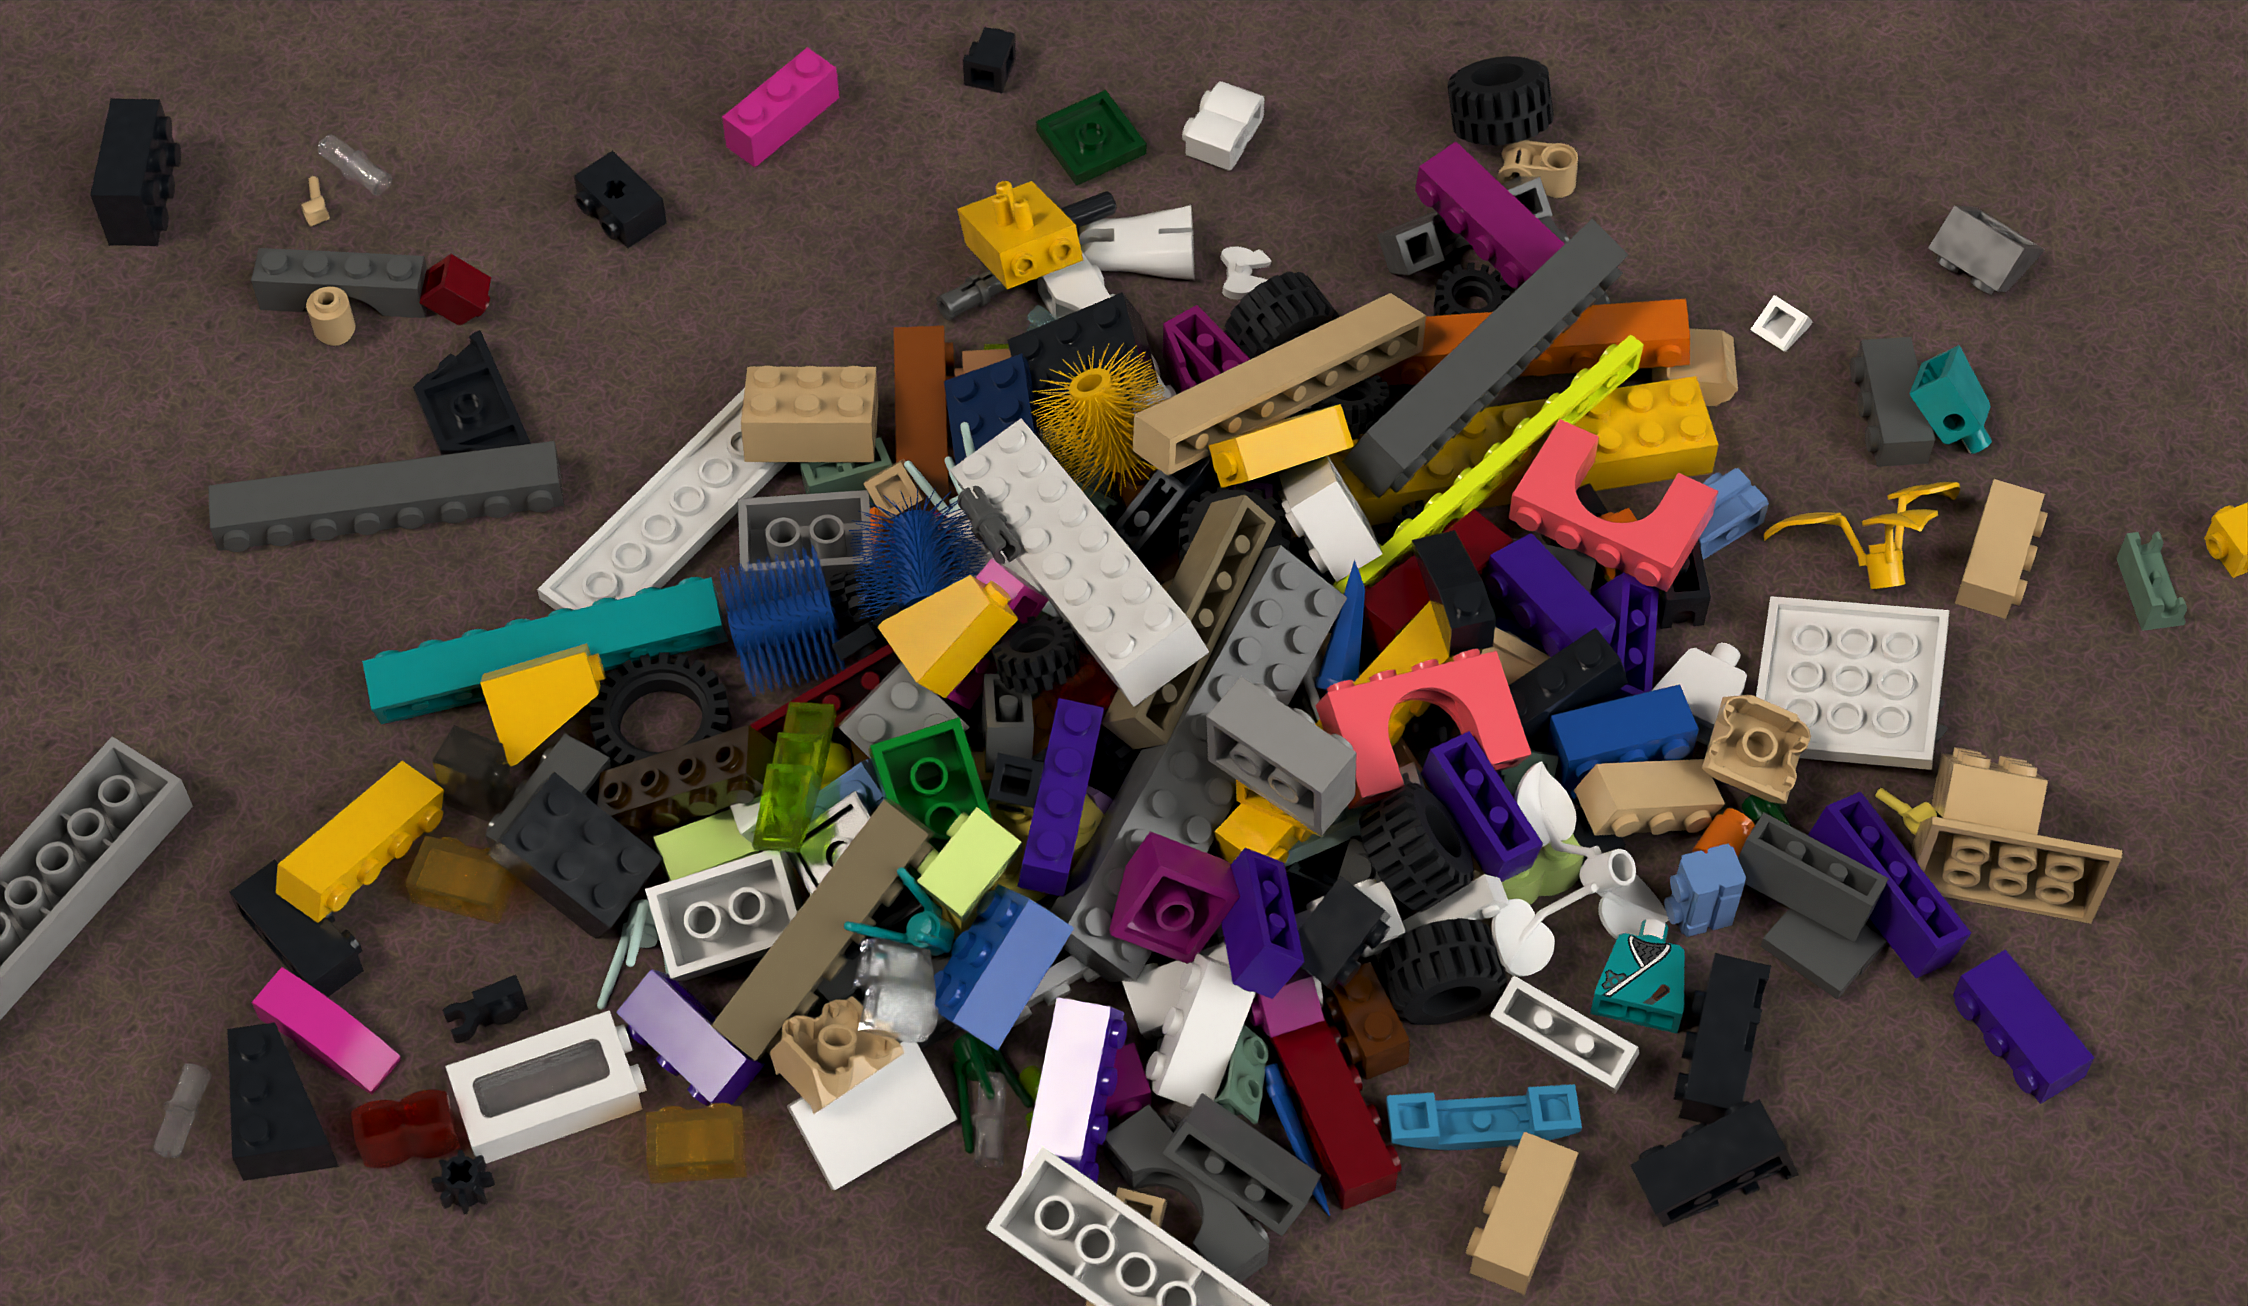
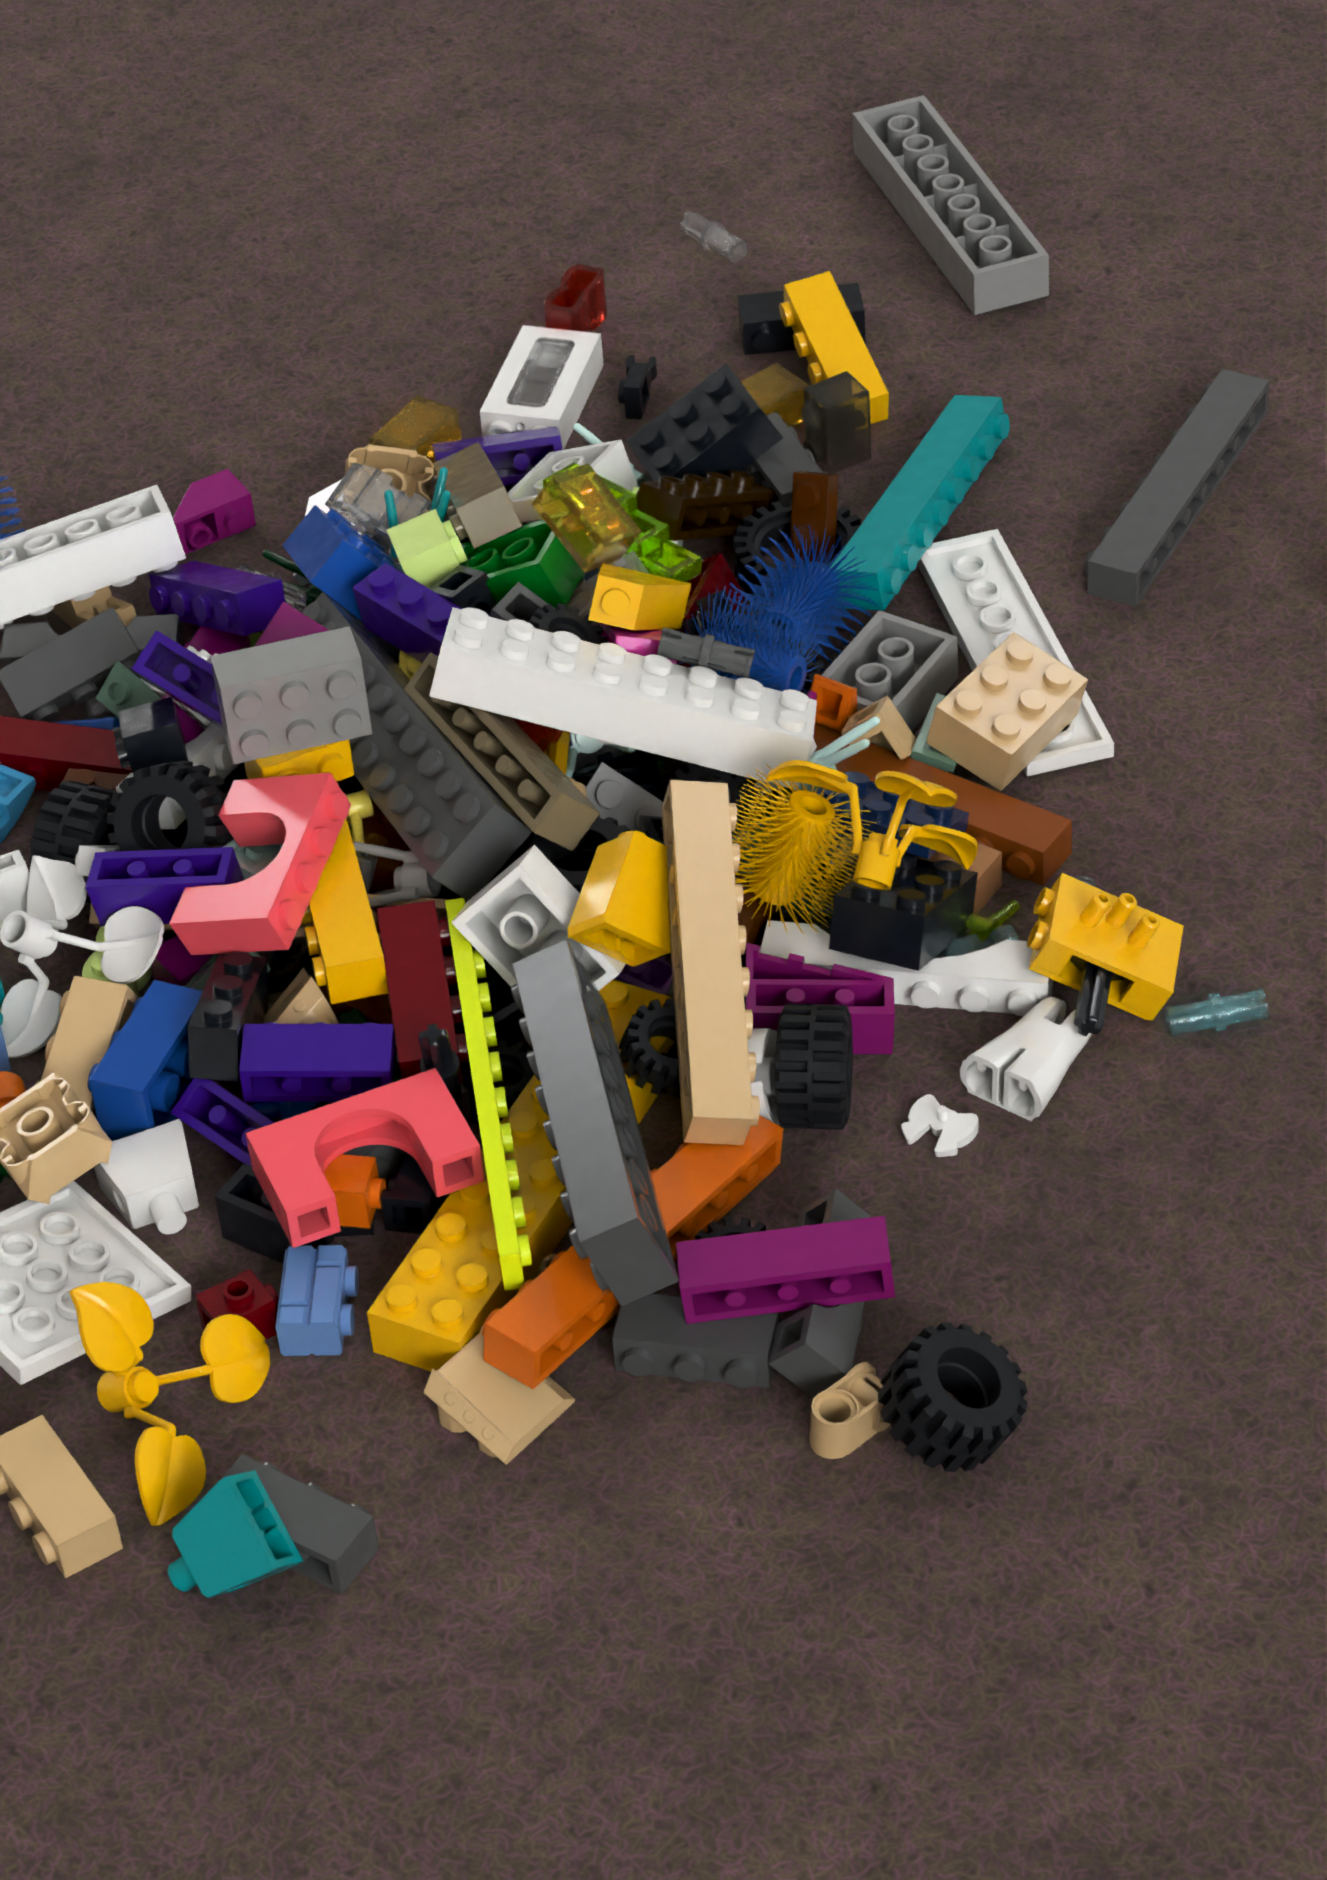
camera: 130 degrees right, 15 degrees down
(269, 1109) = (668, 262): black wedge -> none
(325, 1031) = (700, 306): dark pink slope -> none
(463, 1181) = (506, 326): black gear -> none
(469, 403) = (1237, 565): black wing -> none
(539, 697) = (873, 463): yellow slope -> none
(627, 710) = (814, 505): none -> reddish brown plate
(879, 712) = (586, 517): none -> clear yellow brick
(922, 1251) = (213, 511): none -> magenta slope
(1011, 166) = (1217, 1012): none -> clear light blue pin
(1078, 368) = (879, 854): none -> yellow plant
(1091, 137) = (1210, 1086): dark green plate -> none
(1223, 125) = (1136, 1189): white brick -> none
(1344, 646) = (399, 881): blue bar -> none
(1455, 593) = (353, 932): black slope -> none
(1498, 505) = (438, 1054): none -> black axle
(1765, 550) = (243, 1297): none -> dark red brick
(1781, 324) = (480, 1514): white slope -> none
(1983, 249) = (391, 1744): flat silver slope -> none

